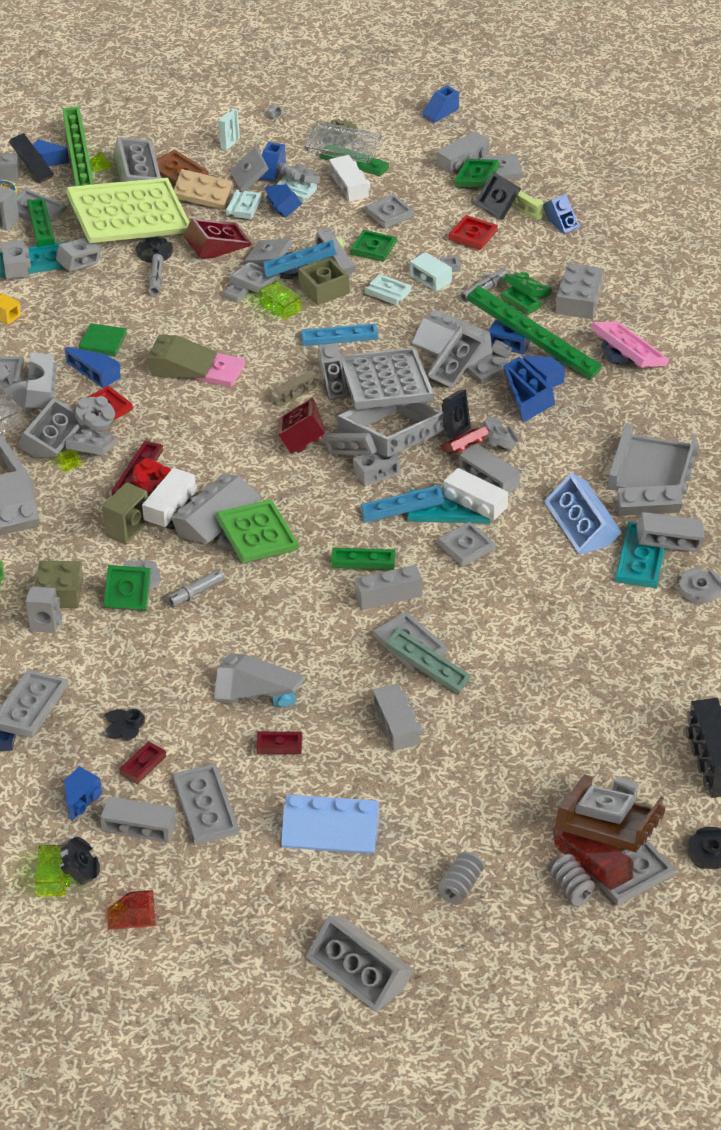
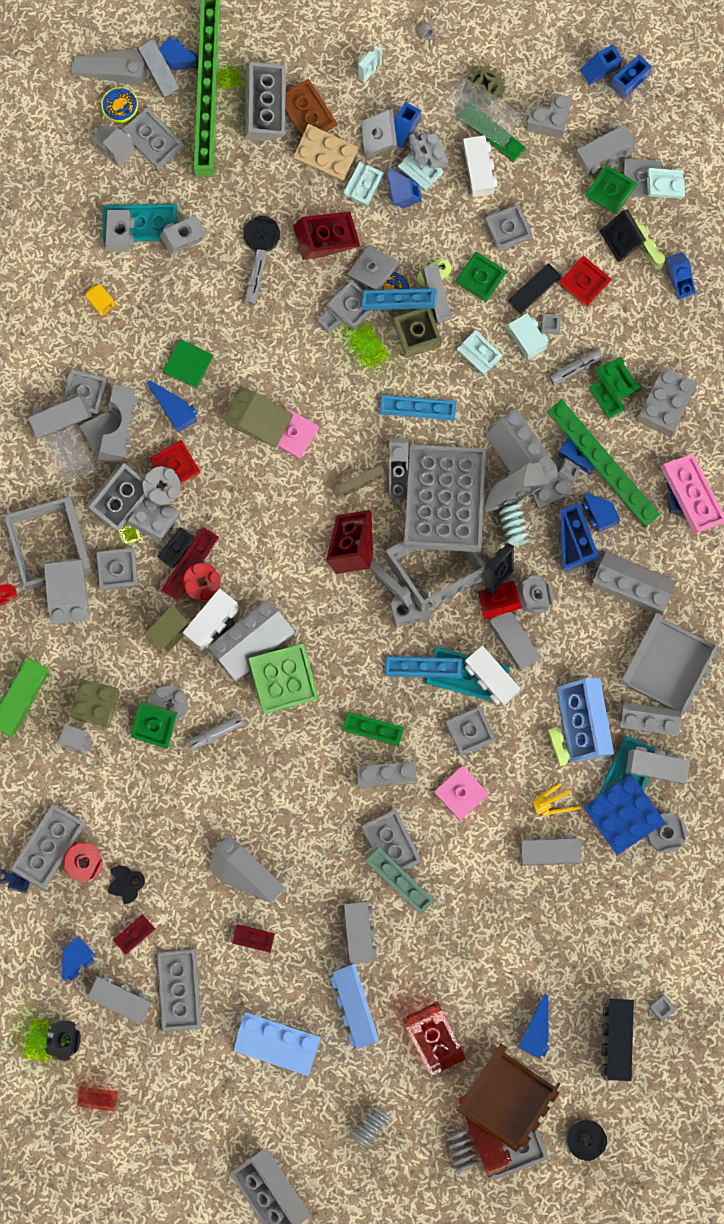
camera: 15 degrees right, 35 degrees up
(40, 222) = (153, 170): green tile -> none
(61, 486) = (117, 569): none -> light grey plate
(63, 716) = (93, 859): none -> plate
(119, 461) = (176, 547): none -> black plate
(128, 210) = (242, 183): yellowish green plate -> none
(406, 142) = (551, 121): none -> light grey brick
(412, 772) = (355, 1007): none -> light blue slope
(427, 243) = (534, 288): none -> black tile
(456, 381) = (512, 525): none -> light aqua piece
(470, 106) = (631, 76): none -> blue brick
(472, 593) = (461, 793): none -> bright pink plate
(508, 789) = (434, 1038): none -> clear red slope
(525, 164) = (665, 183): none -> light aqua plate
(561, 539) = (556, 738): none -> yellowish green plate
(562, 584) = (542, 804): none -> yellow plant
(583, 618) = (551, 851): none -> light grey brick
(592, 416) = (633, 583): none -> light grey slope
(605, 804) = (507, 1086): light grey plate -> none
(621, 760) = (537, 1034): none -> blue slope
(625, 786) = (531, 1063): light grey tile -> none
(650, 575) = (624, 815): none -> blue plate

